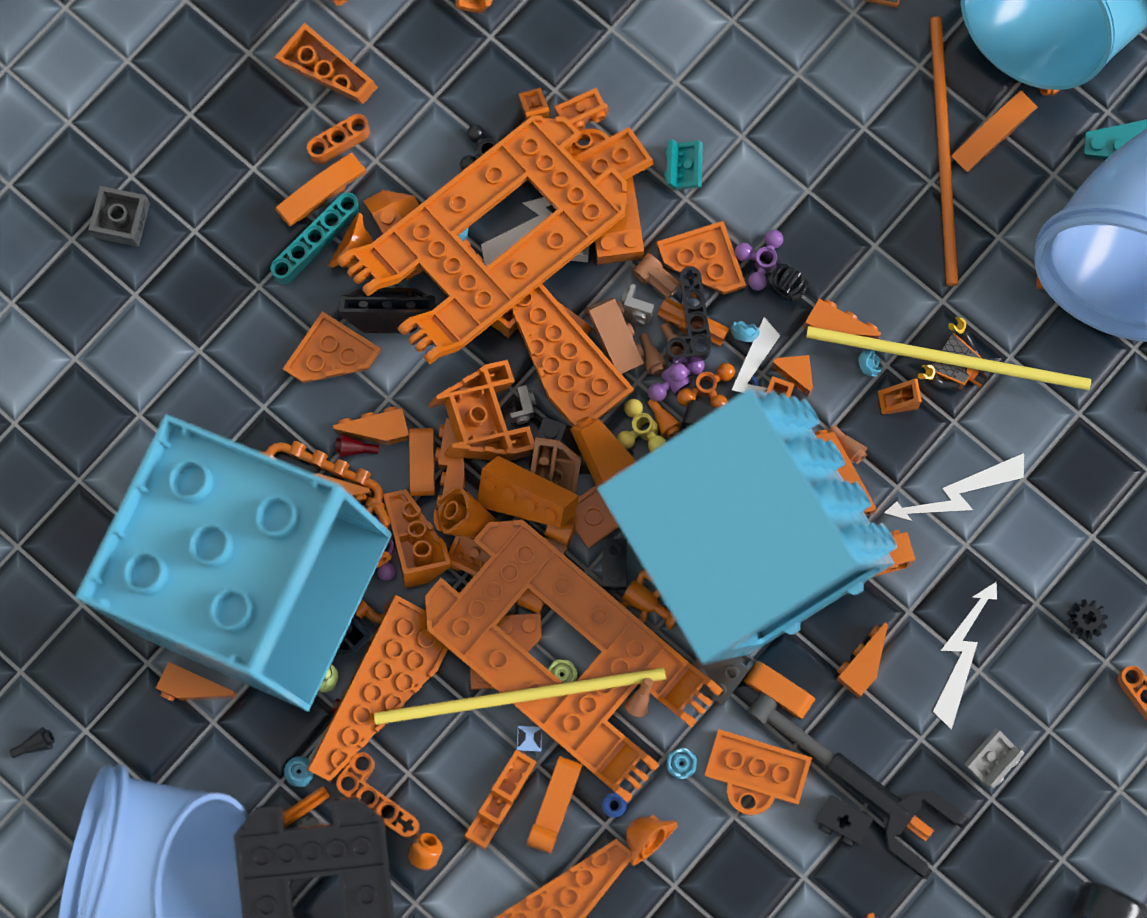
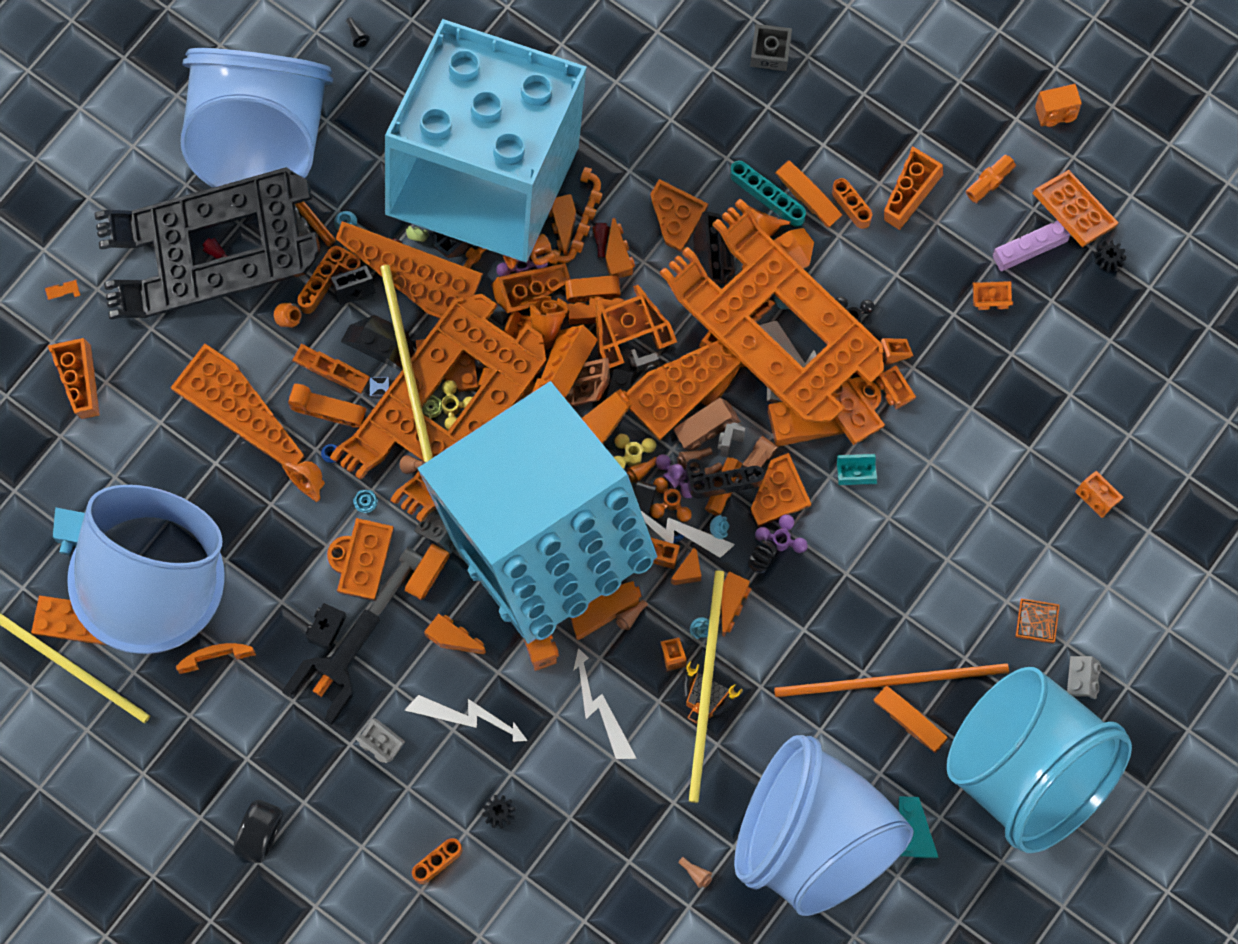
camera: 85 degrees right, 5 degrees down
(392, 763) = (353, 285): none -> black brick
(466, 737) = (376, 339): none -> black wedge
(540, 648) = (449, 387): none -> light yellow piece

